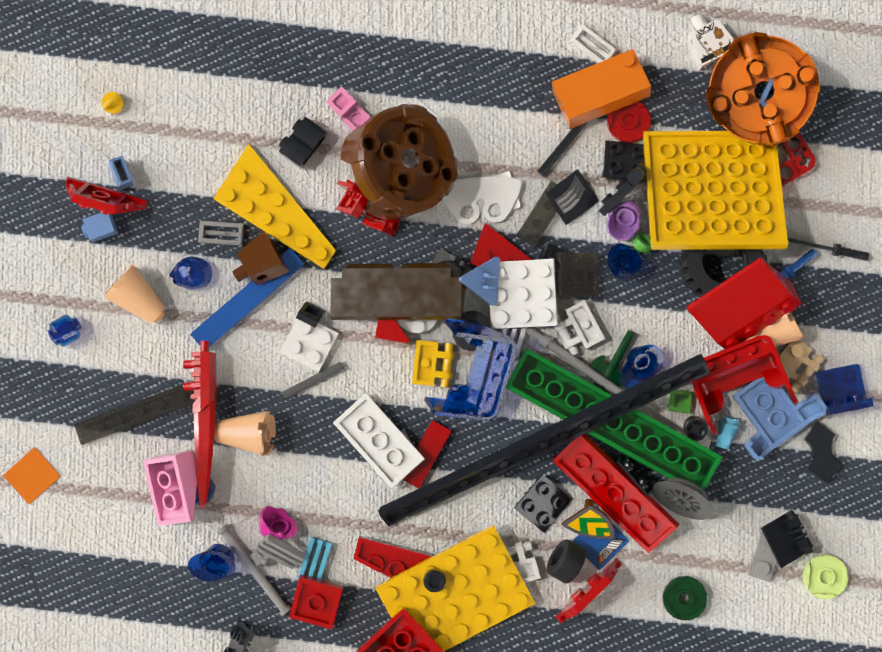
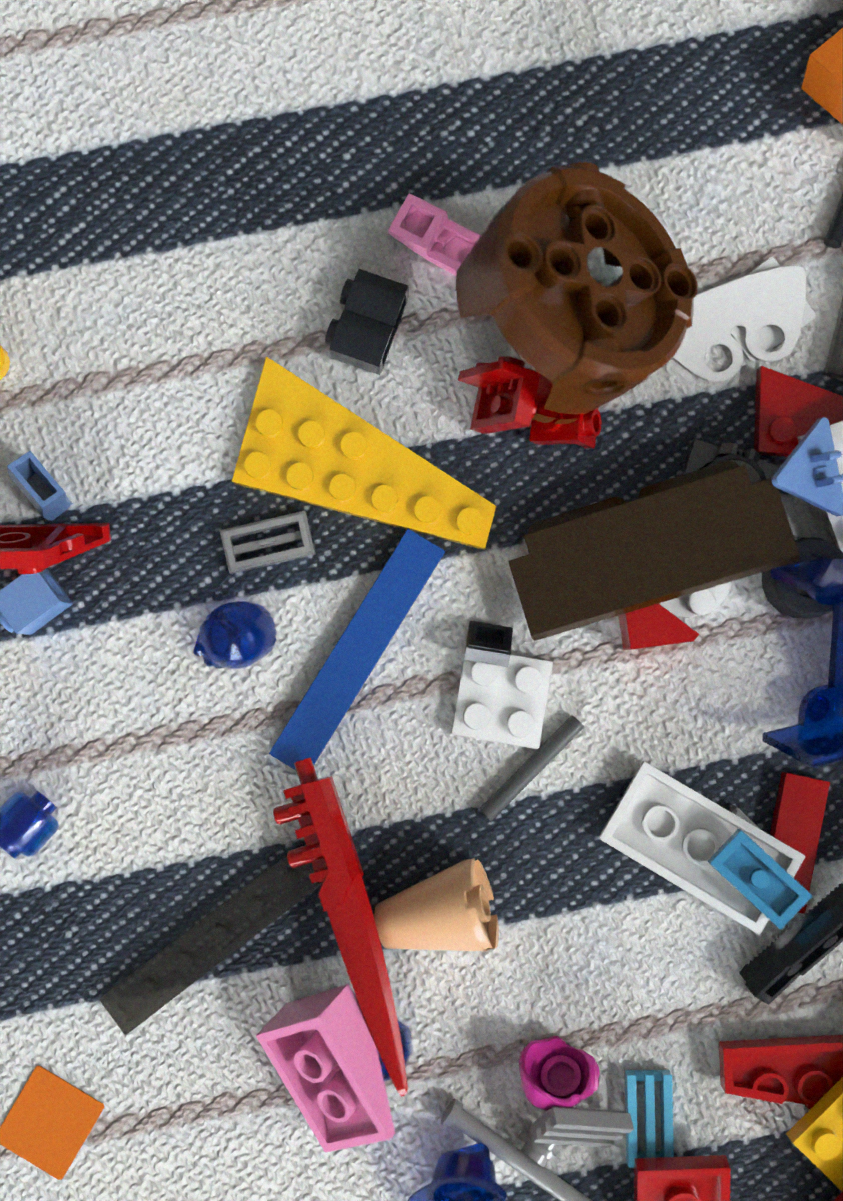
camera: 15 degrees left, 0 degrees up
(136, 296) = (142, 714): light nougat cone -> none
(260, 261) = (360, 571): reddish brown torso -> none
(397, 460) = (759, 878): none -> dark azure plate
(425, 363) = (738, 666): yellow plate -> none

